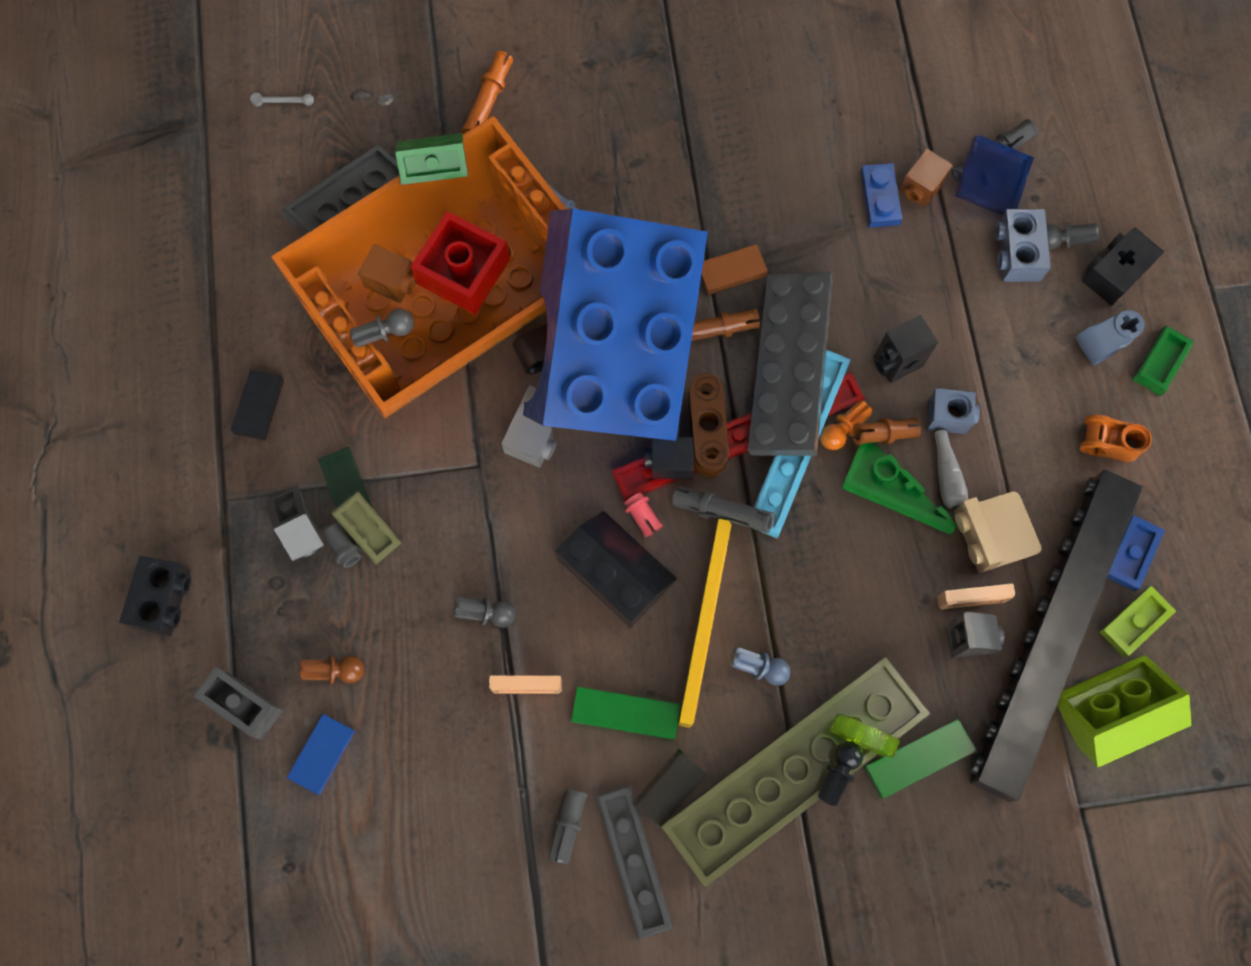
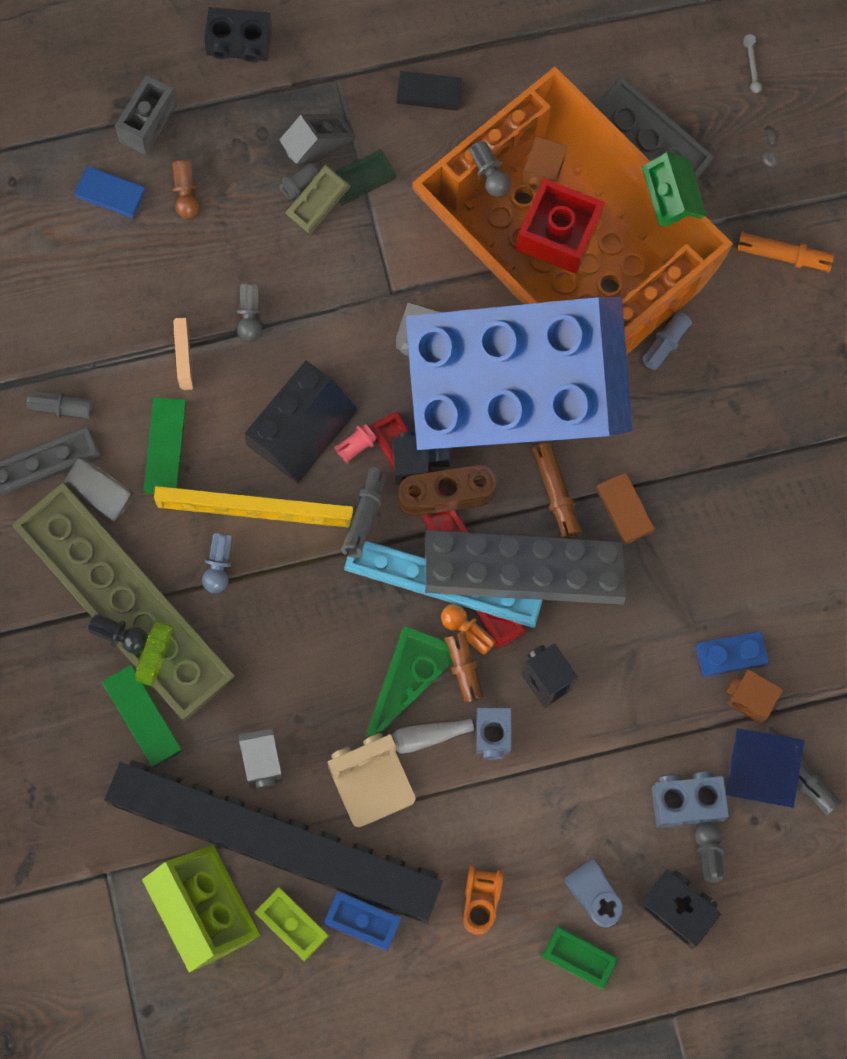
camera: 80 degrees right, 0 degrees up
(976, 596) = (301, 761): light nougat tile -> none

